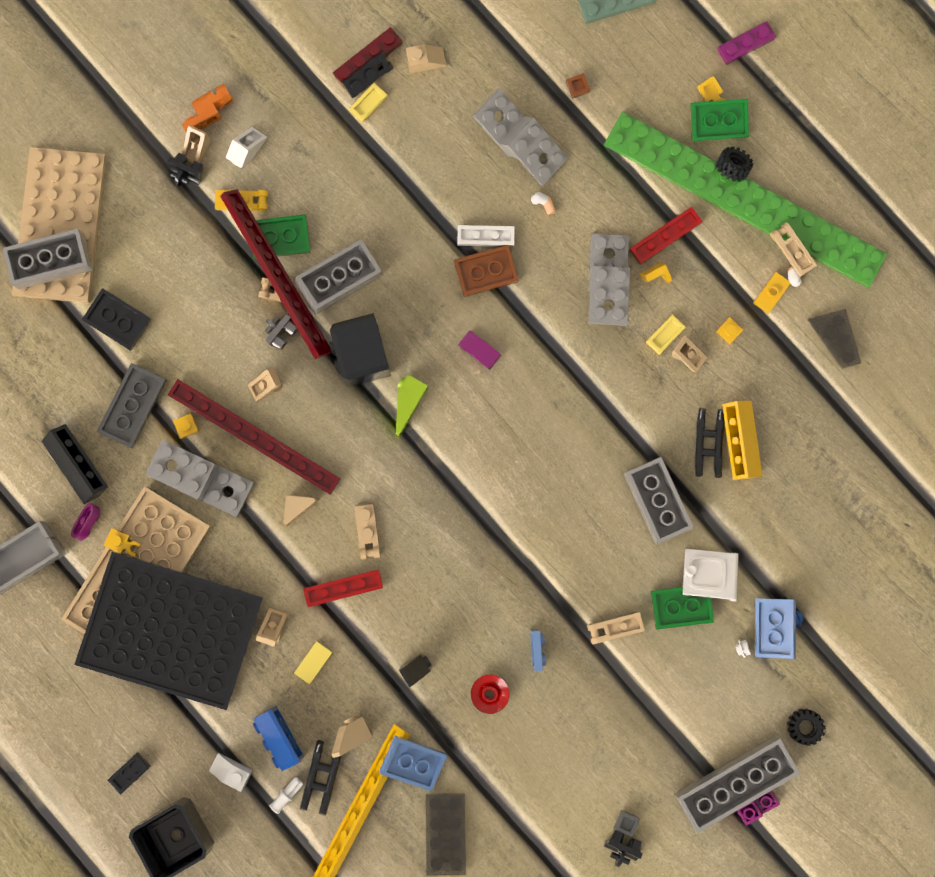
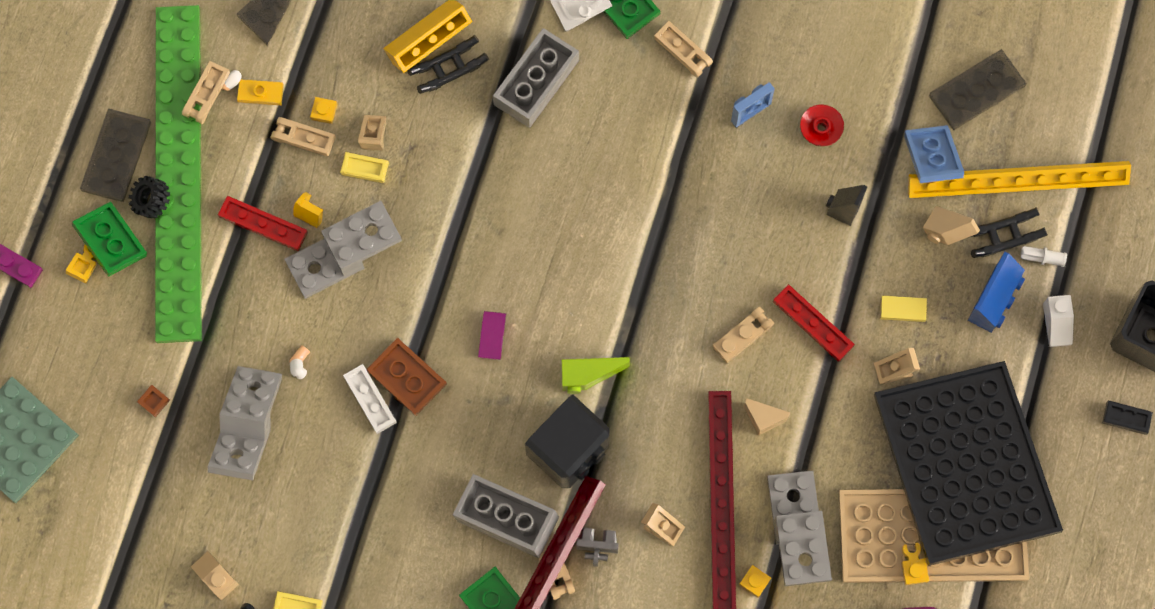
camera: 115 degrees left, 10 degrees down
(716, 303) = (303, 136): none -> tan plate
(784, 160) = (115, 155): none -> clear smoke plate

